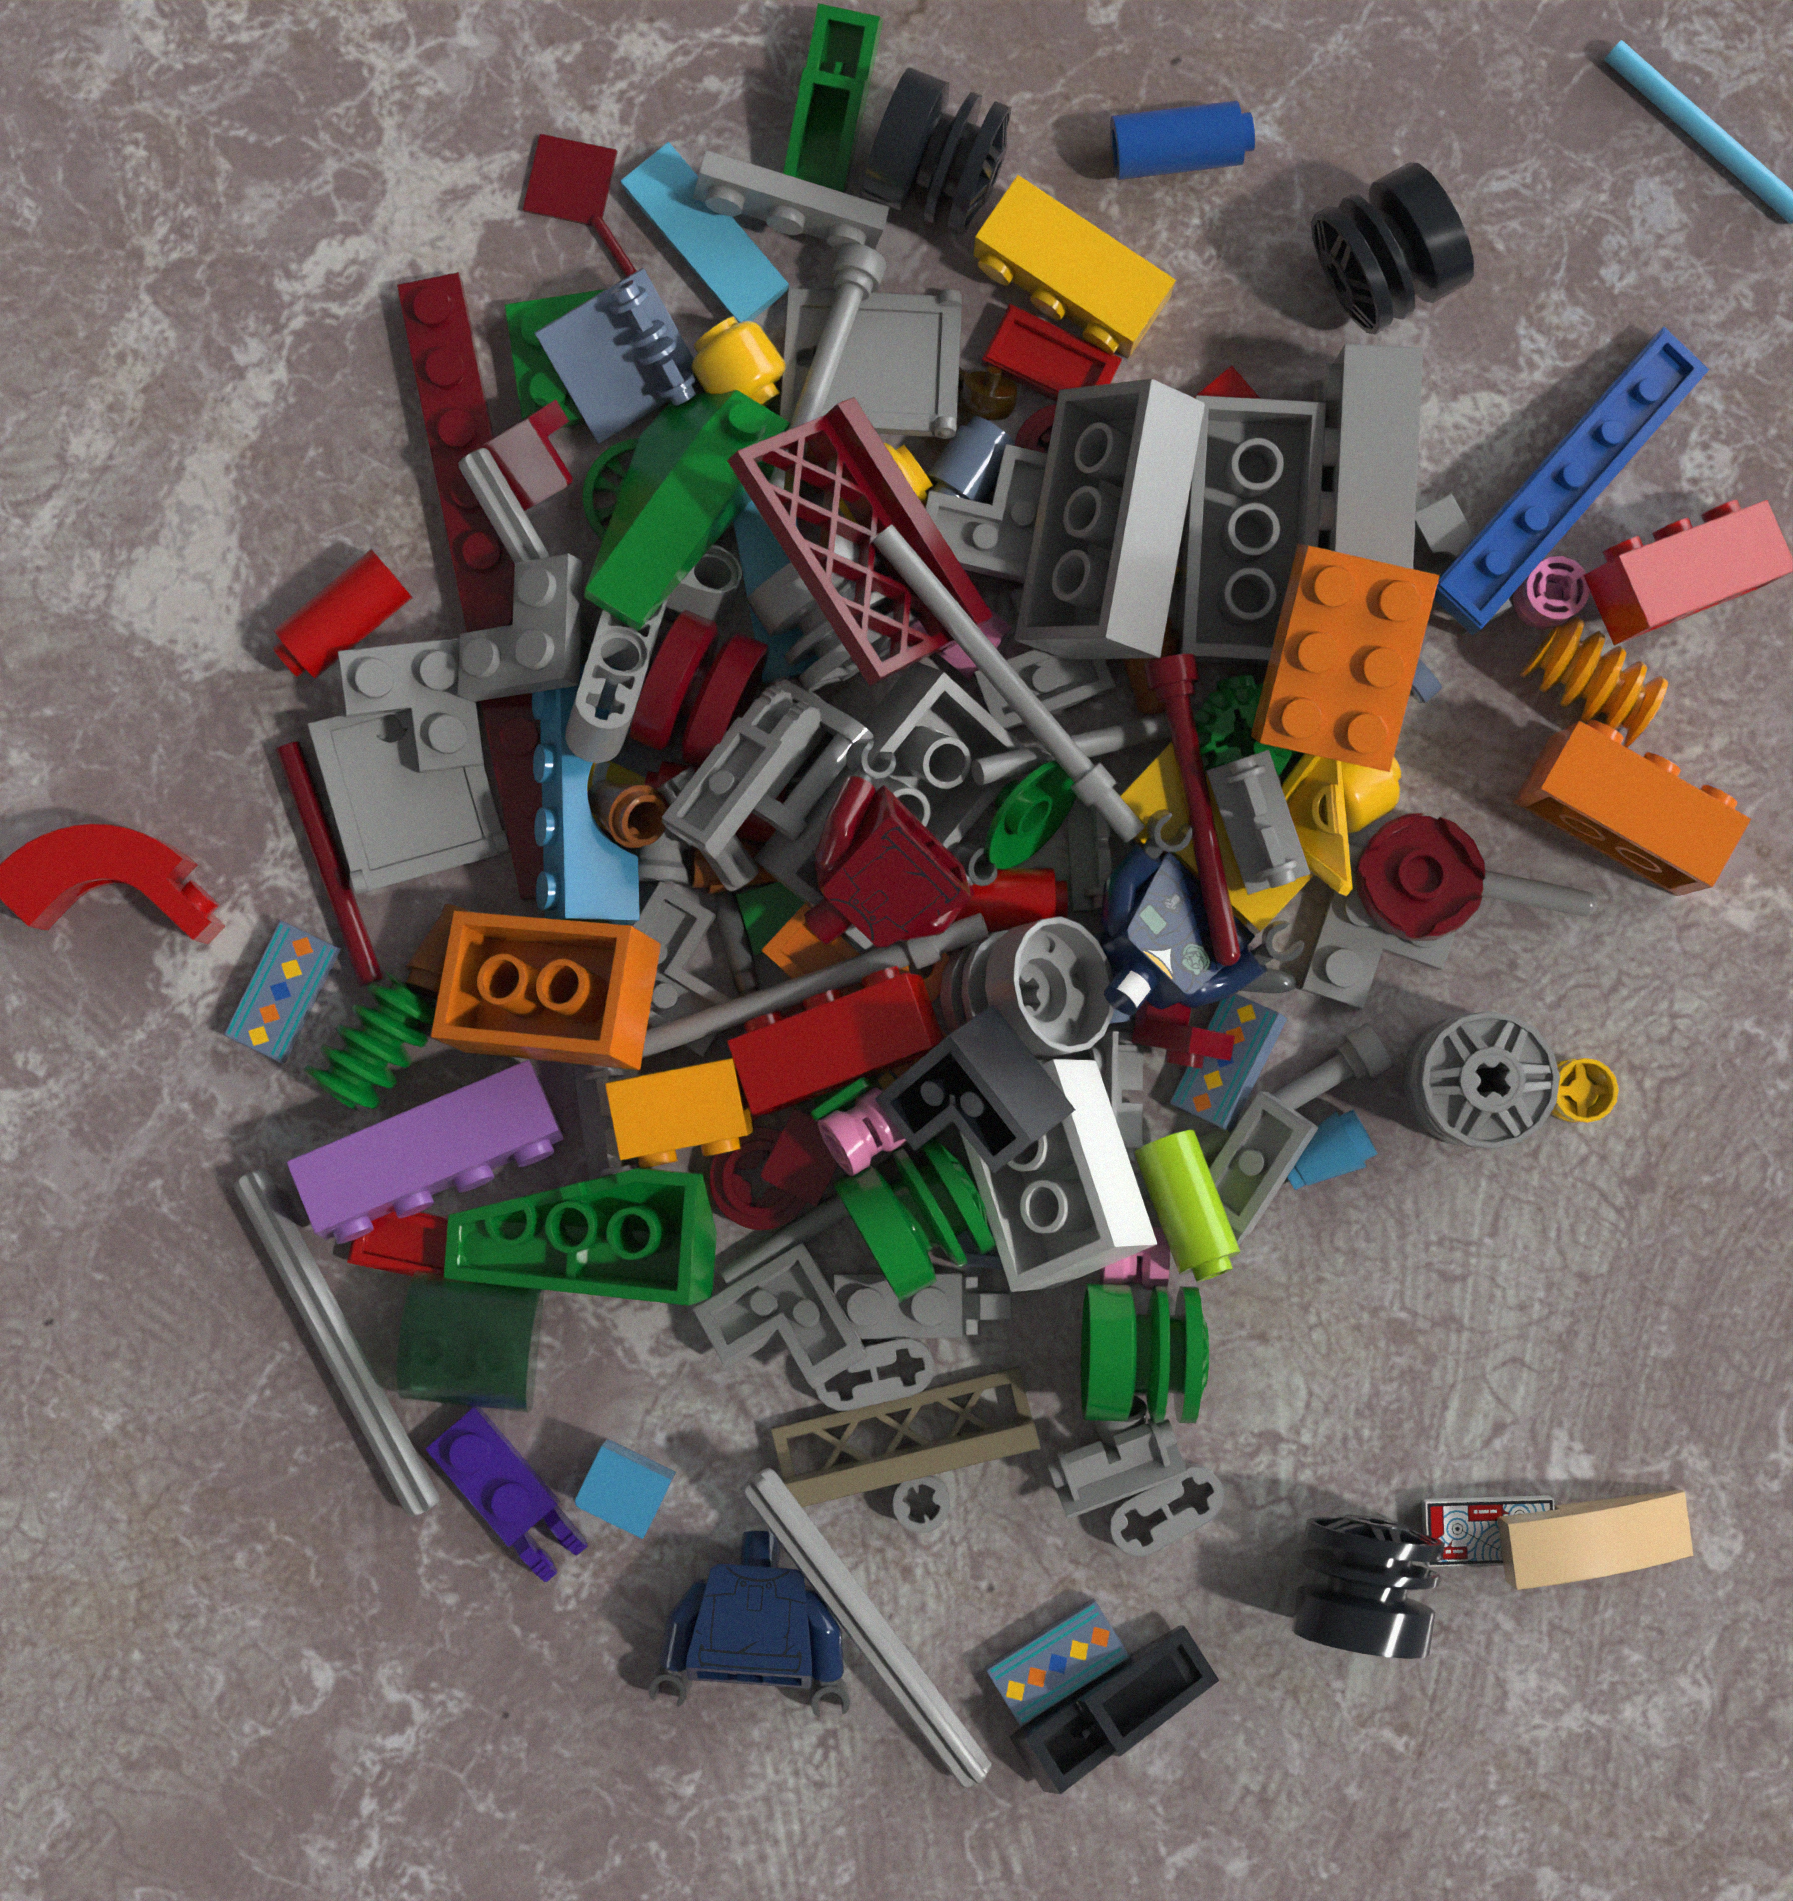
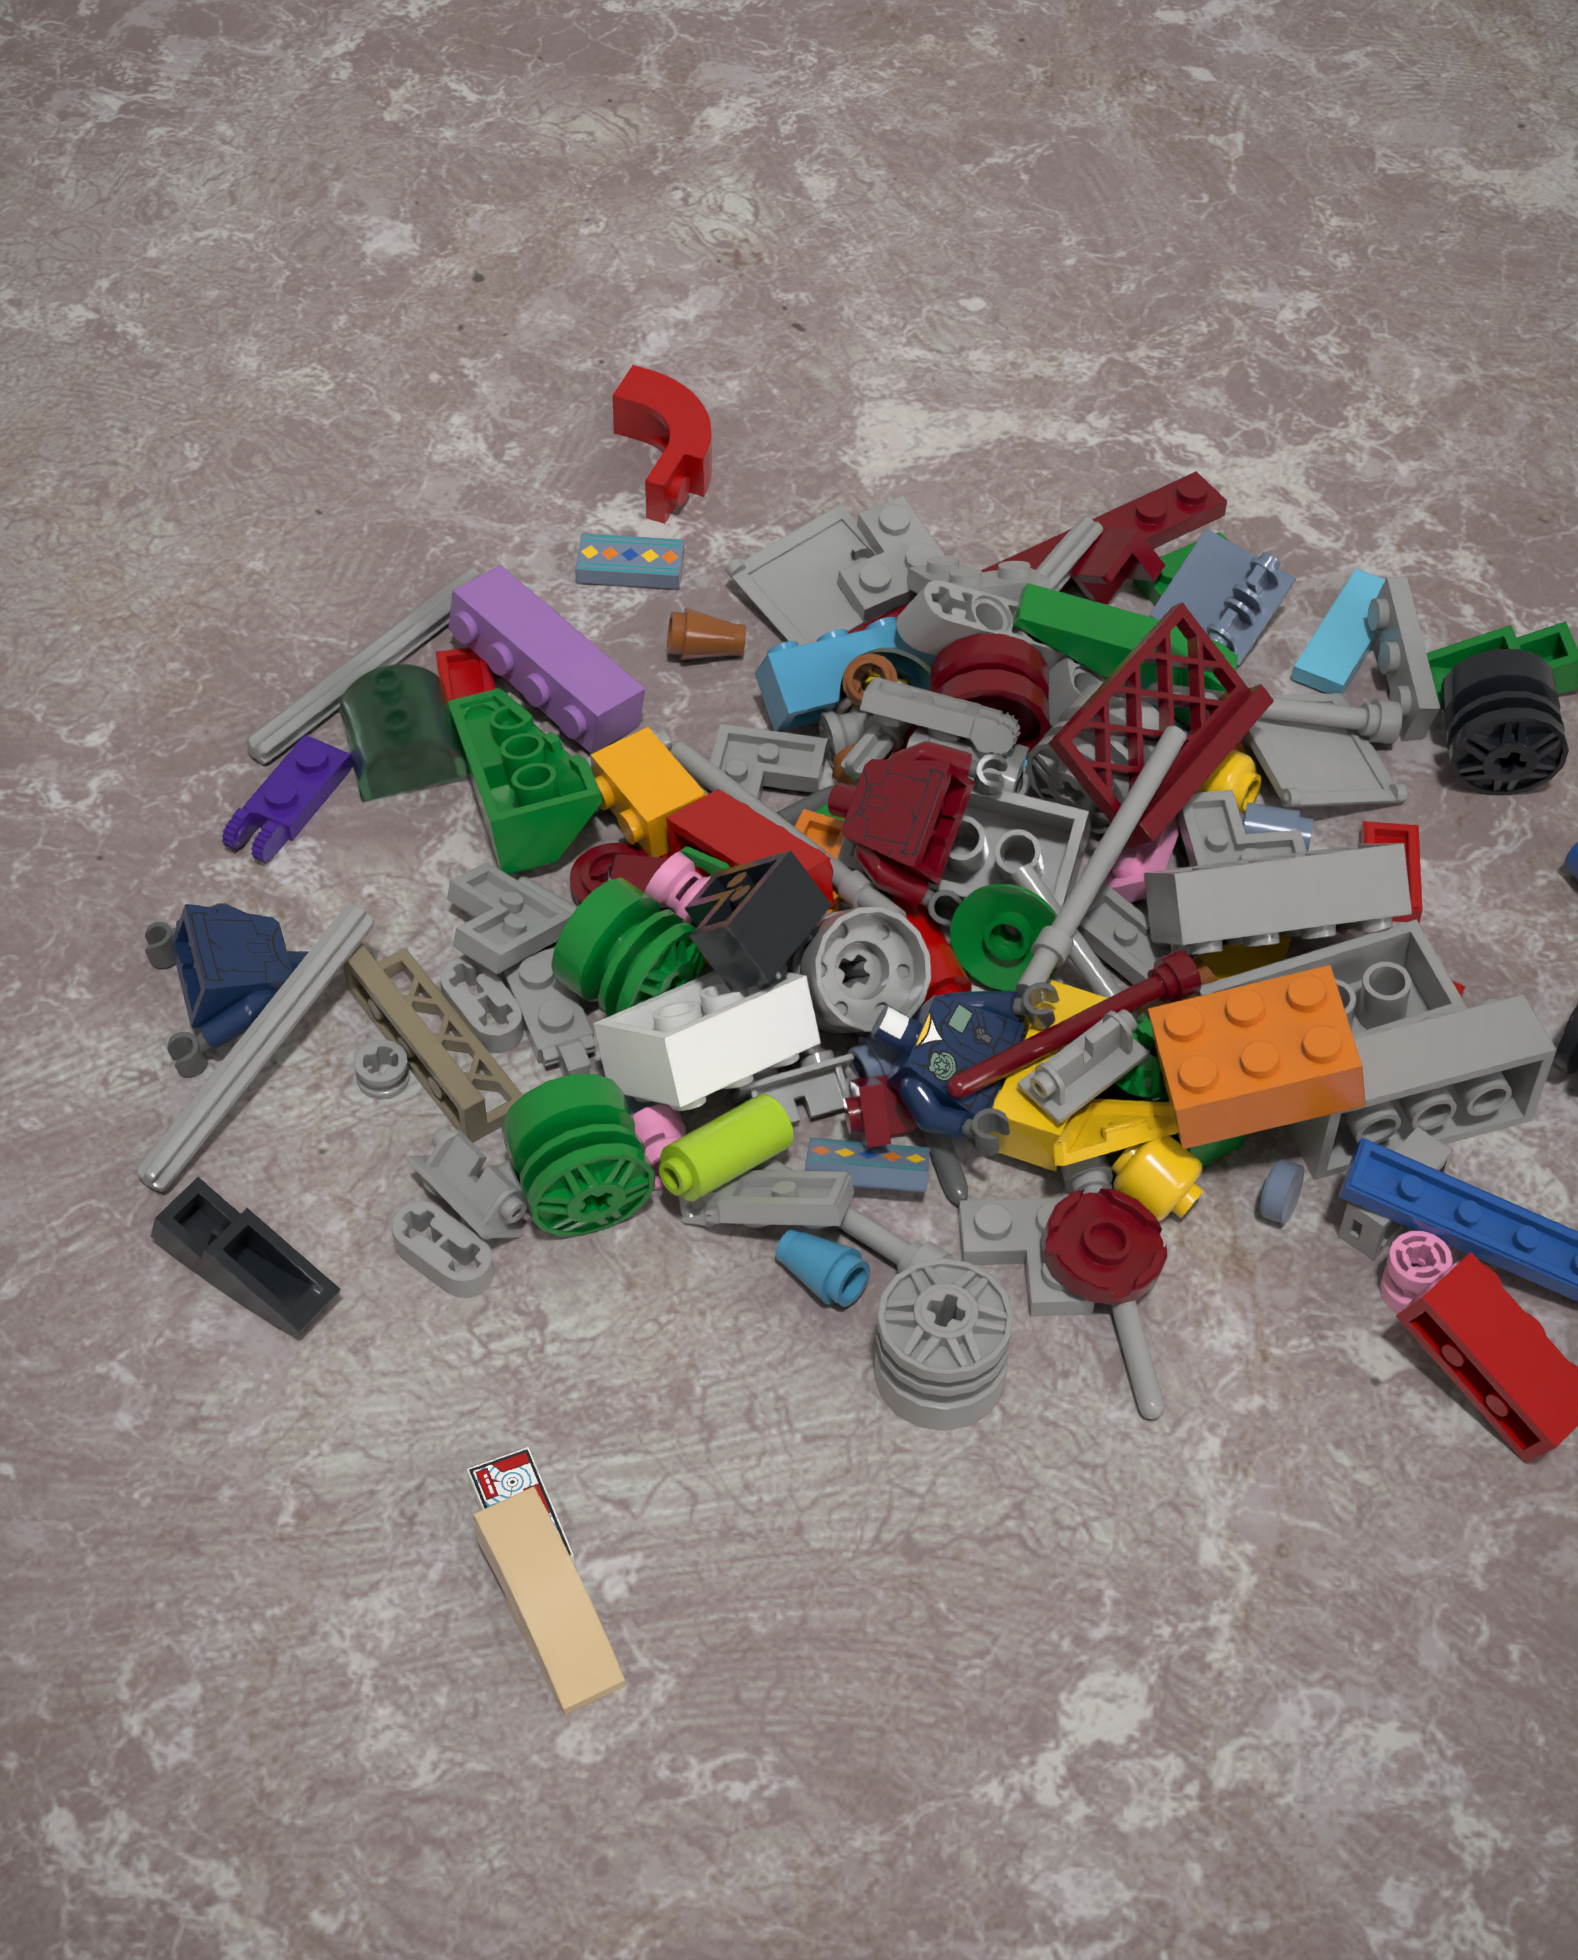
camera: 70 degrees right, 35 degrees down
(329, 864) = (716, 574): dark red bar -> none
(340, 616) = (941, 507): red brick -> none
(374, 1045) = (615, 612): green piece -> none
(546, 989) = (706, 677): orange brick -> none
(573, 185) = (1330, 554): dark red piece -> none
(624, 1488) = (319, 861): dark azure panel -> none
(738, 359) = (1266, 659): yellow head -> none
(987, 393) = (1335, 827): dark brown piece -> none
(1057, 1661) = (280, 1205): sand blue tile -> none
(1071, 268) = (1471, 852): yellow brick -> none
(1367, 1587) = (432, 1396): black wheel -> none
(1592, 1089) = (981, 1431): yellow wheel -> none
(1597, 678) = (1357, 1328): light orange piece -> none
(1633, 808) = (1258, 1379): orange brick -> none

